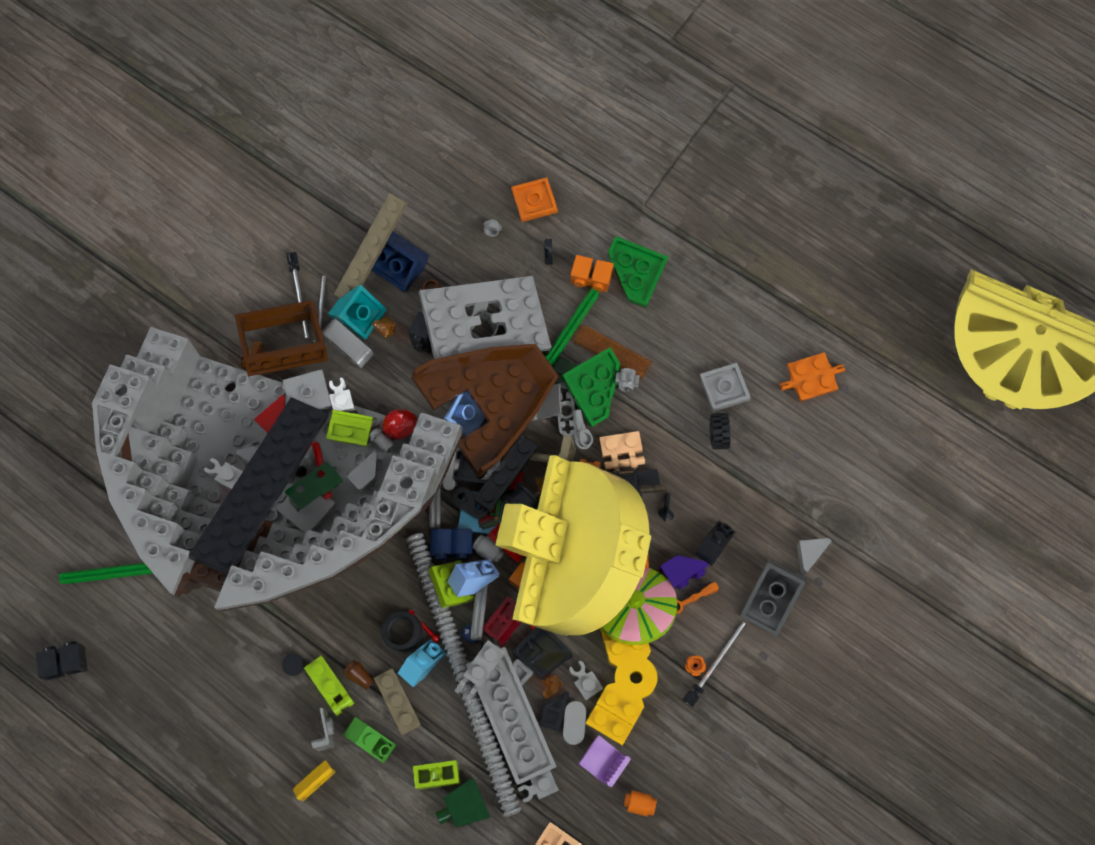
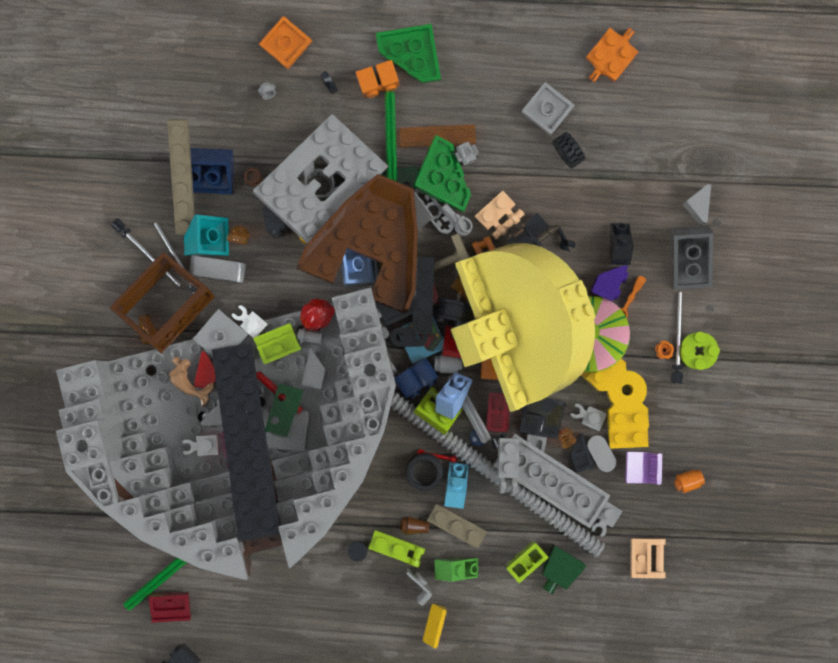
camera: 35 degrees left, 15 degrees up
(96, 603) = (170, 606): none -> dark red plate
(246, 406) = (179, 379): none -> medium nougat animal
(721, 697) = (688, 350): none -> lime plate

